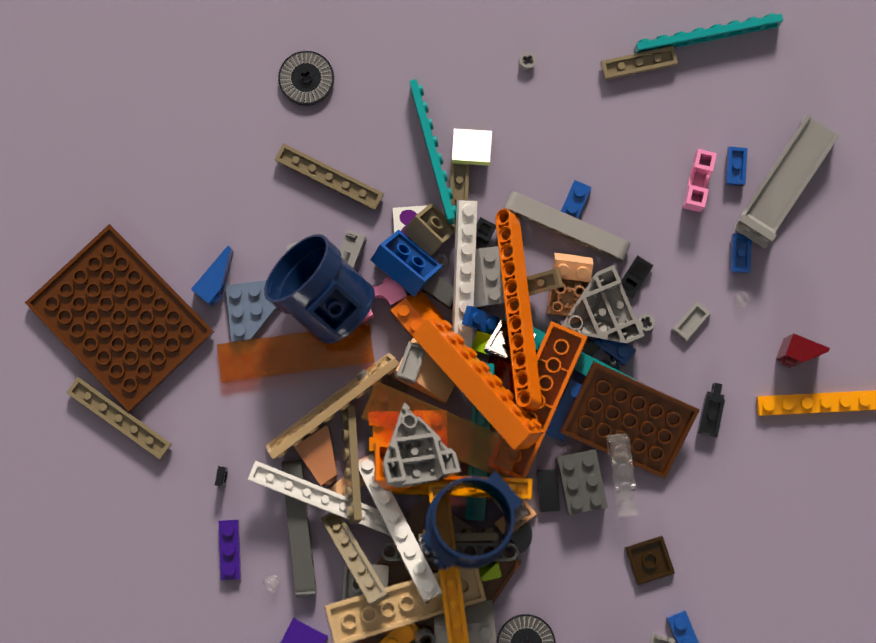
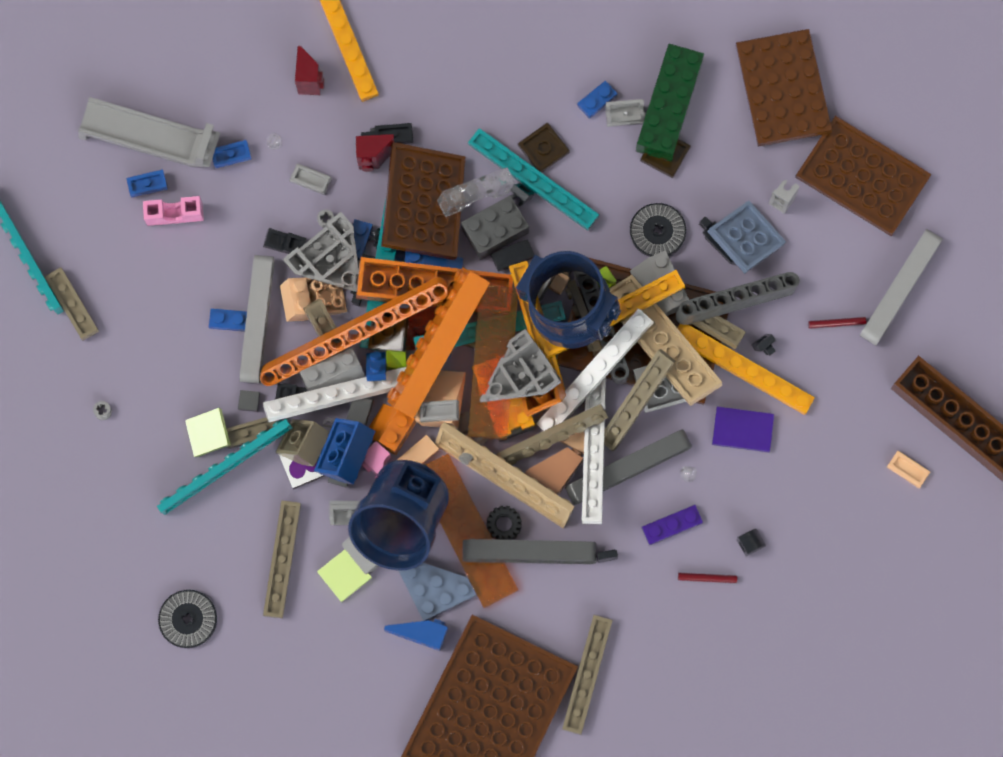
camera: 105 degrees left, 5 degrees down
(167, 565) = (707, 577): none -> dark red bar
(184, 620) = (750, 542): none -> black brick
(250, 403) = (529, 551): none -> dark grey beam
(276, 390) = (504, 512): none -> black tyre
(293, 226) = (343, 575): none -> yellowish green tile
(383, 333) = (420, 451): none -> light nougat tile
(490, 194) = (248, 400): none -> dark grey tile
(609, 521) = (522, 192): none -> black tile
(619, 538) = (533, 179): none -> teal plate
(698, 387) = (373, 151): none -> dark red slope

